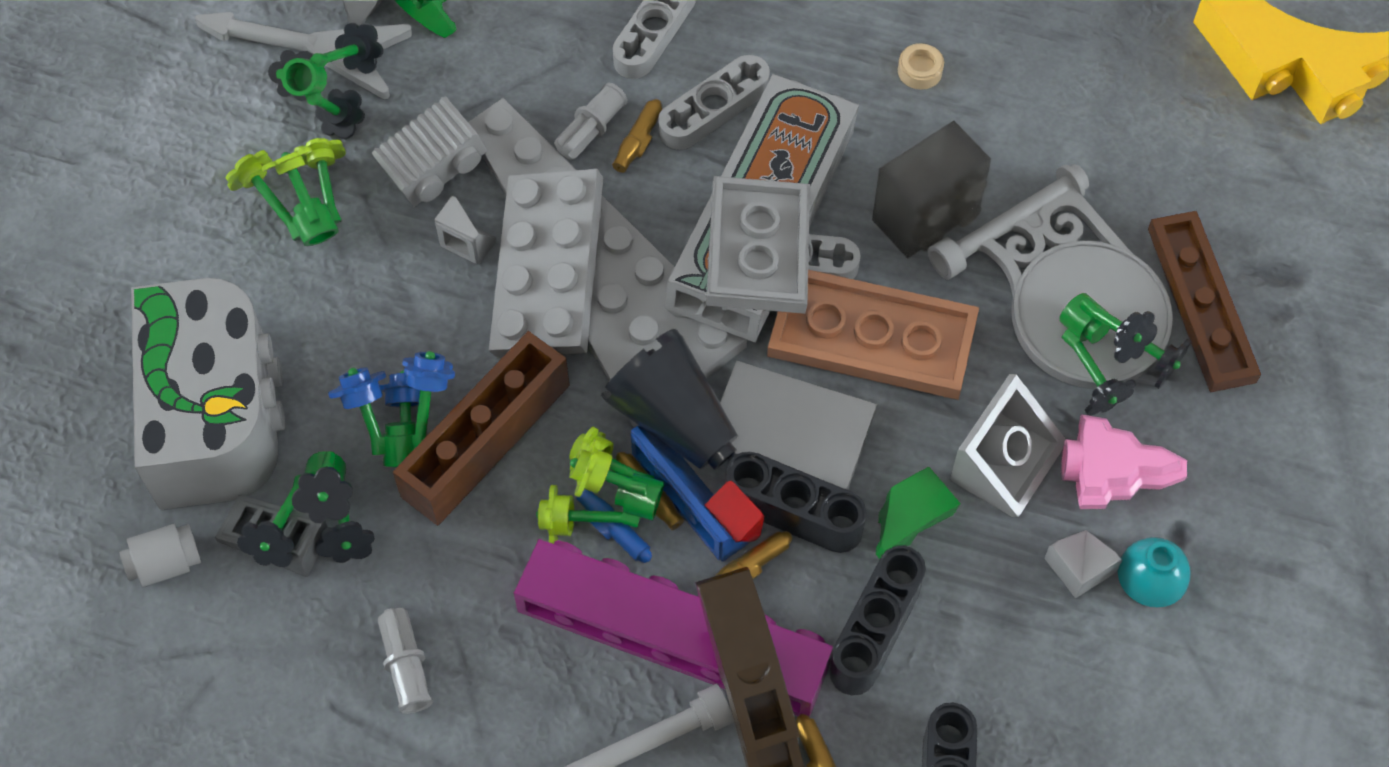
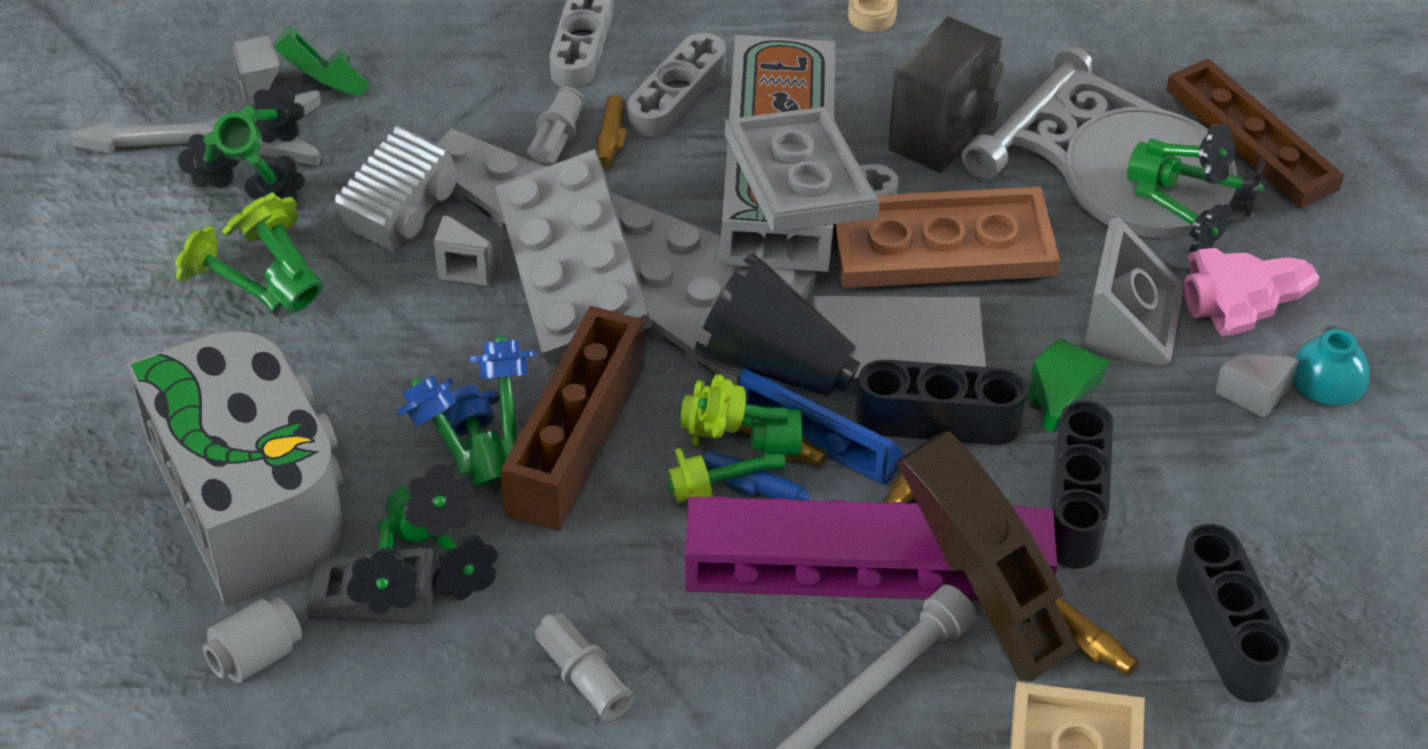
camera: 20 degrees left, 15 degrees down
(736, 513) = (890, 417): red slope -> none

